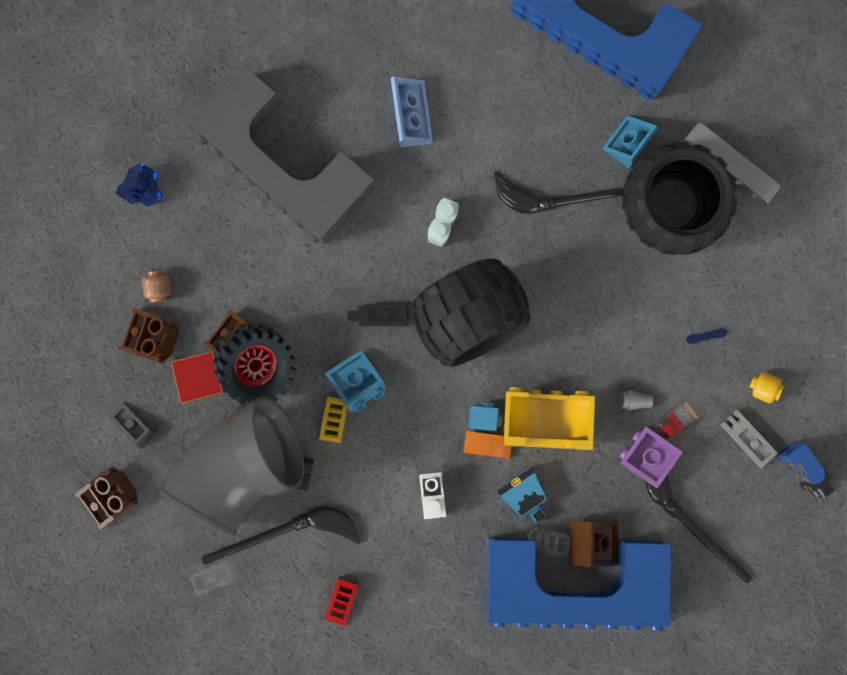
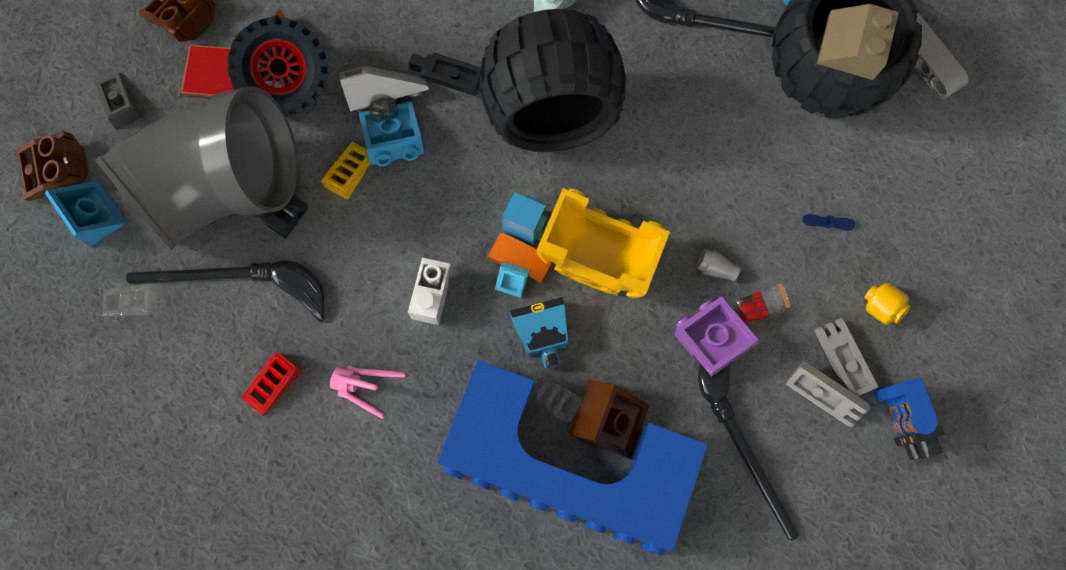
camera: 20 degrees right, 10 degrees down
(152, 522) = (87, 211): none -> dark azure slope
(330, 347) = (368, 83): none -> light grey slope
(343, 365) = (383, 109): none -> clear smoke piece
(396, 581) = (348, 380): none -> bright pink plant
(488, 464) = (512, 279): none -> medium azure tile
(689, 212) = (858, 40): none -> dark tan slope
(743, 470) = (827, 394): none -> light grey hinge

